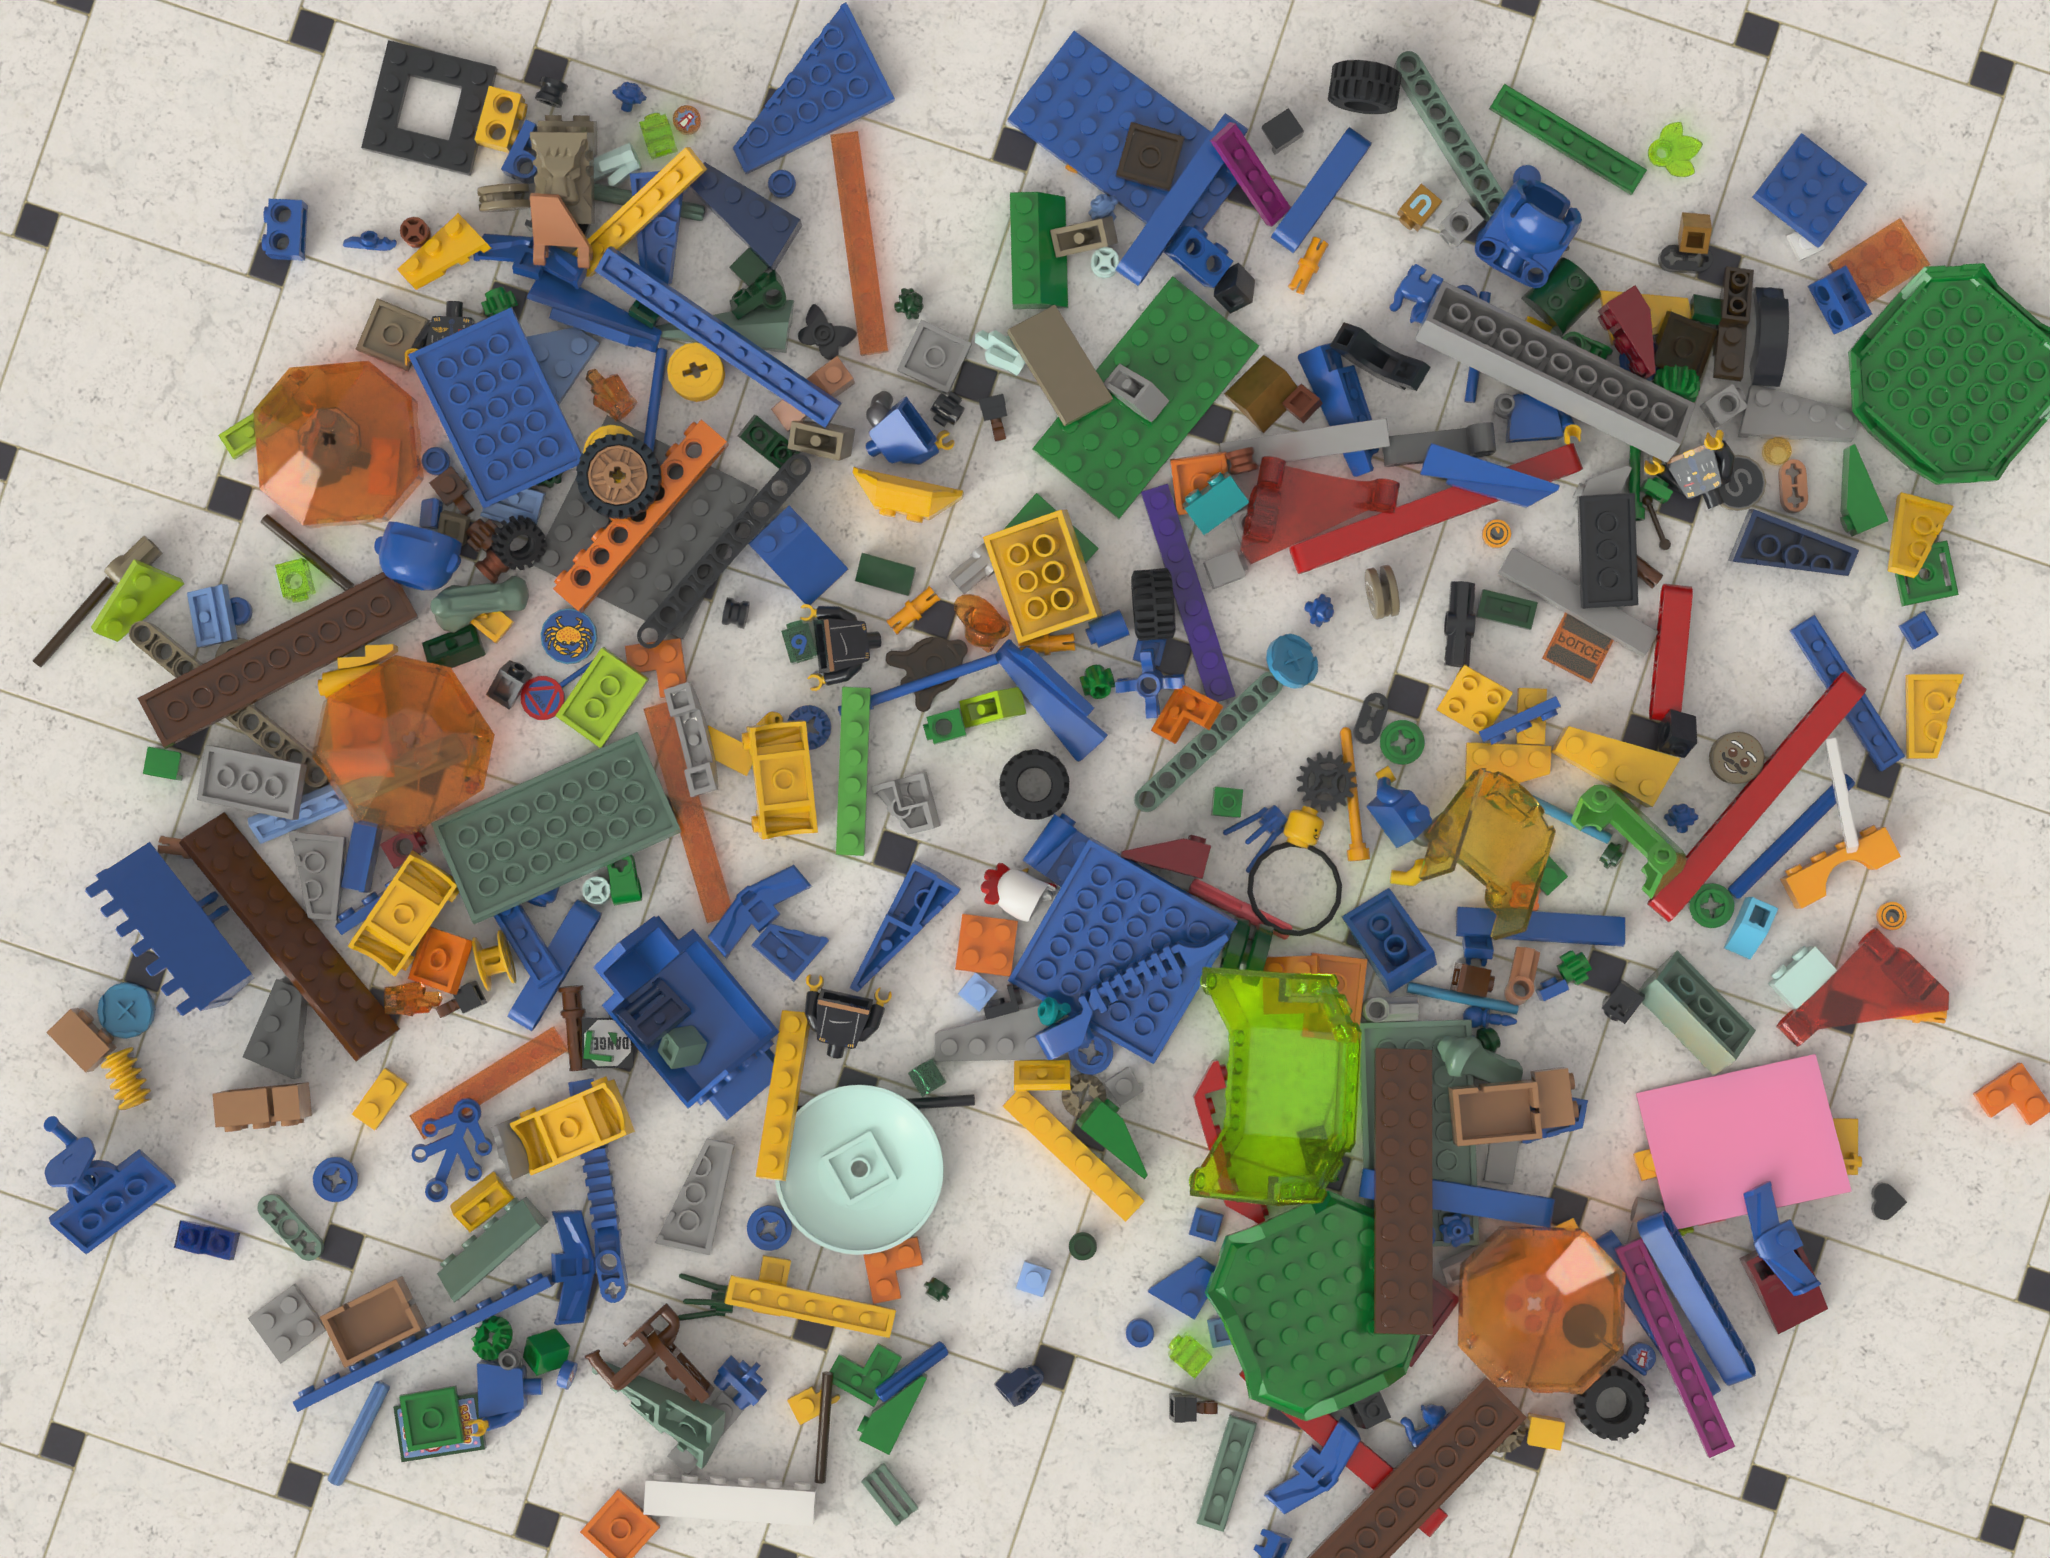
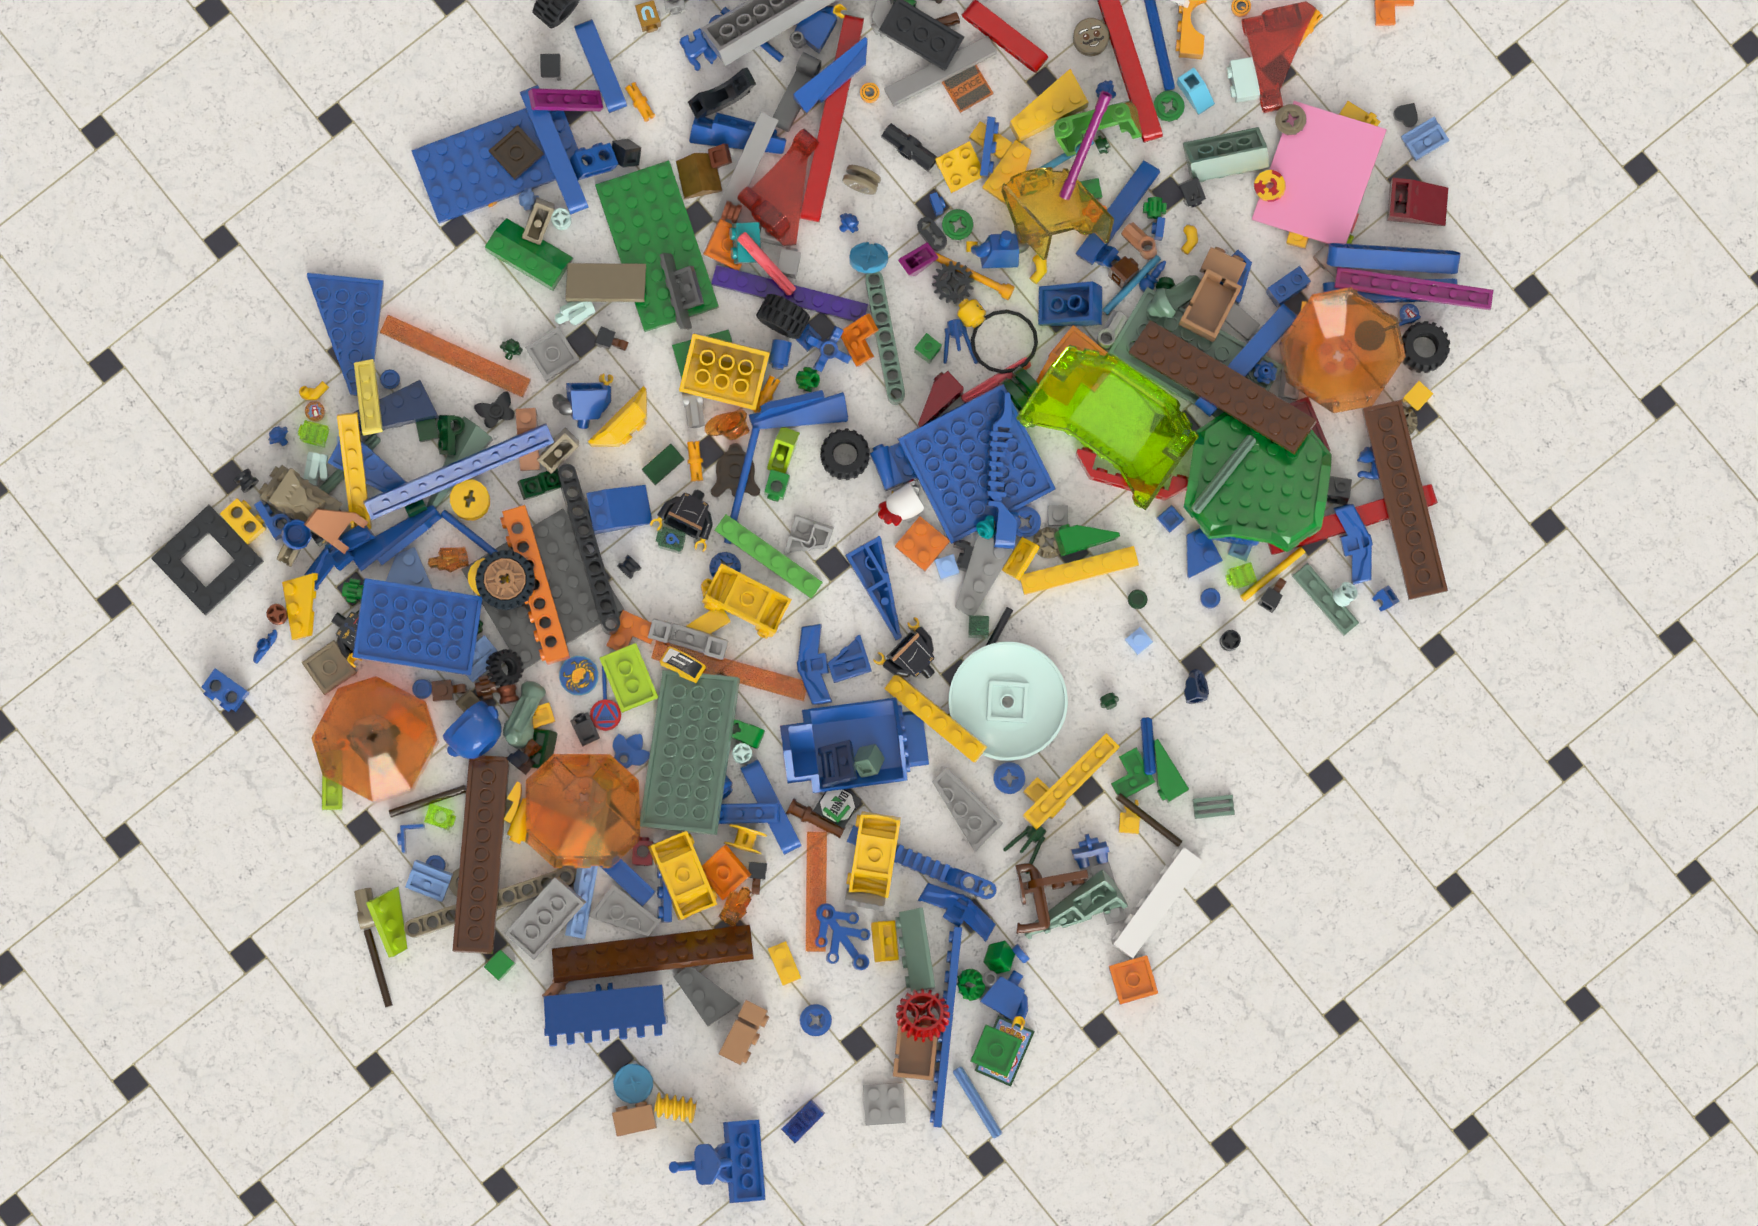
camera: 60 degrees left, 5 degrees down
(244, 550) = (401, 837): none -> blue bracket
(283, 1206) = (840, 1058): sand green beam -> none
(410, 1322) = (911, 1004): none -> red gear
(423, 633) = (521, 759): none -> black piece
(430, 513) = (451, 711): blue slope -> none
(513, 191) = (296, 534): none -> blue hair
(521, 754) = (632, 749): none -> blue plate
(656, 752) = (683, 664): none -> slope
(707, 104) = (313, 393): none -> yellow arm
(738, 171) = (368, 397): none -> light yellow tile
(882, 1268) = (1074, 724): orange plate -> none
(947, 409) = (588, 365): black gear -> none
(1102, 1394) = (1230, 640): none -> black wheel
(1110, 462) = (683, 289): none -> dark grey bracket
(1136, 392) = (650, 247): light grey slope -> none
(1204, 543) = (766, 263): none -> coral axle
(1212, 1388) = (1272, 574): none -> yellow bar
(1246, 1494) = (1345, 594): none -> light aqua wheel
(1294, 1263) = (1223, 474): none -> sand green axle
(1327, 722) = (918, 259): none -> magenta slope
(1411, 702) = (937, 204): none -> blue plate
(1506, 609) = (918, 114): dark green plate -> none
(1566, 1035) = (1192, 239): none -> yellow arm
(1580, 1190) = (1288, 286): none -> blue brick
(1650, 830) = (1100, 109): none -> magenta piece
(1677, 733) = (1054, 61): black brick -> none
(1697, 1079) = (1276, 191): none -> yellow piece
(1777, 1241) = (1388, 190): blue plate -> none
(1787, 1052) = (1282, 116): none -> dark tan gear
(1870, 1242) = (1424, 138): none -> medium blue plate

